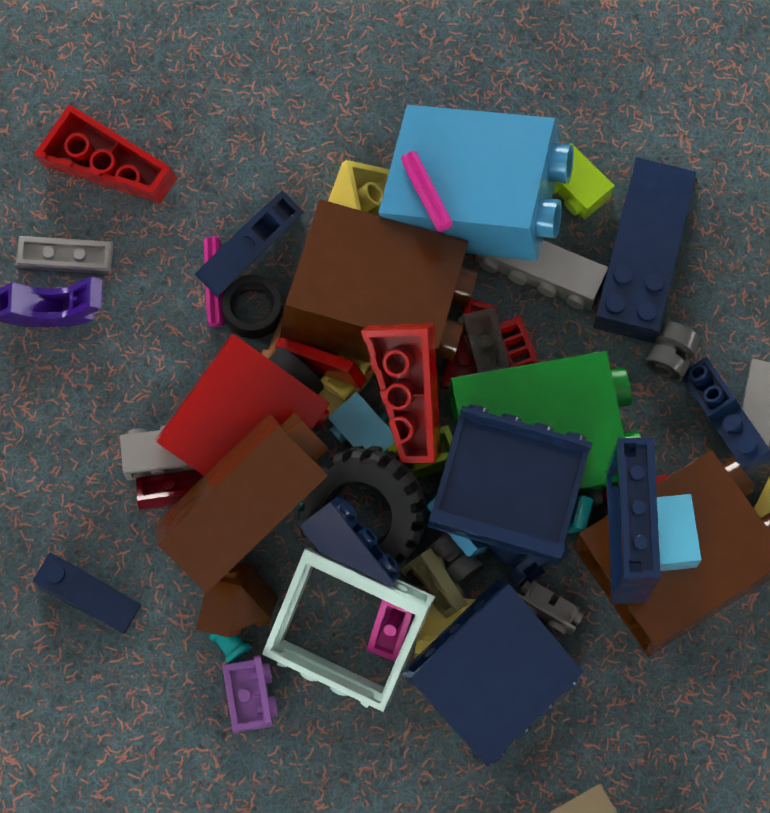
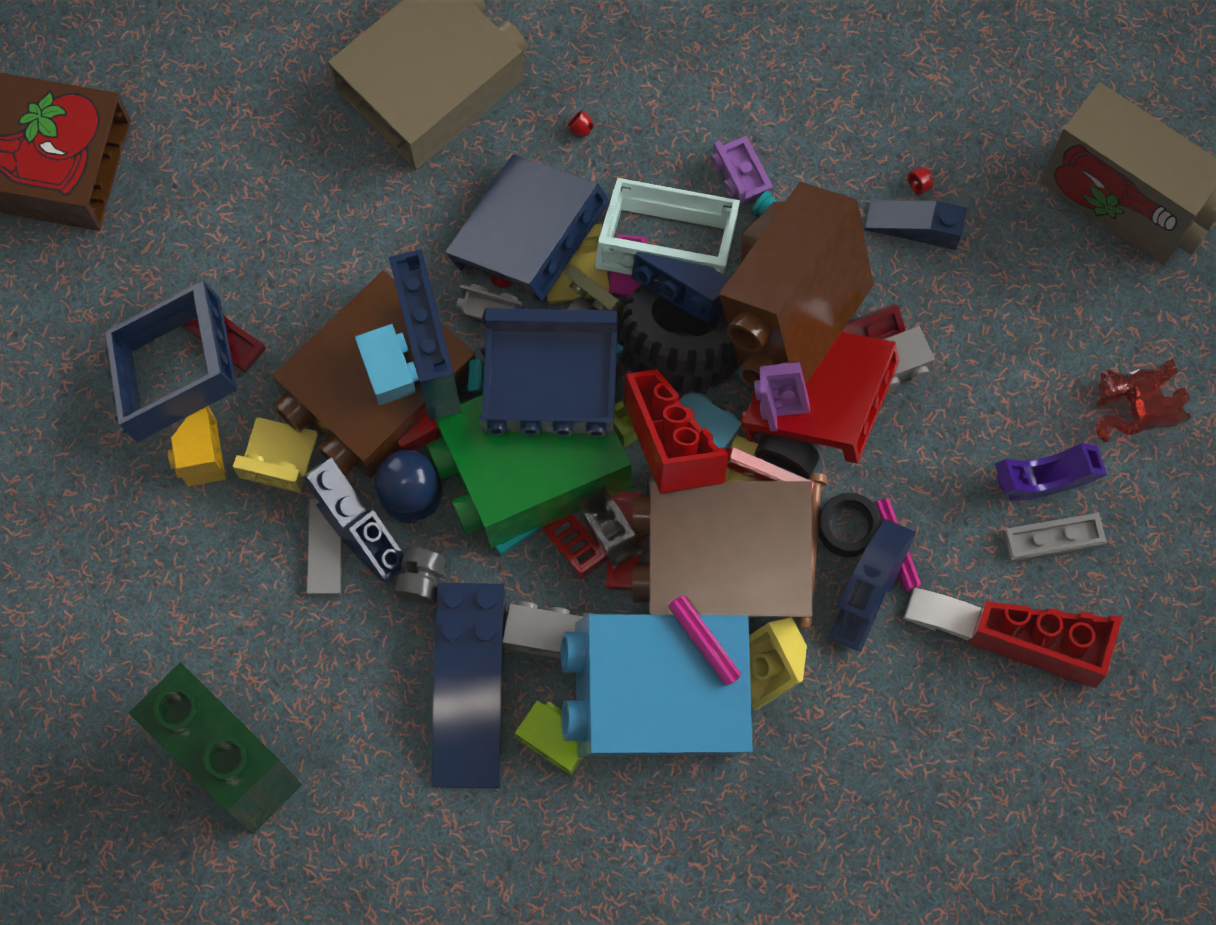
camera: 165 degrees right, 0 degrees up
(65, 639) = (920, 180): none -> red hinge
(193, 208) = (942, 613): none -> white slope
(282, 404) = (781, 392): none -> medium lavender bracket
(405, 795) = (580, 124): none -> red hinge
(675, 435) = (408, 486): none -> dark blue tile

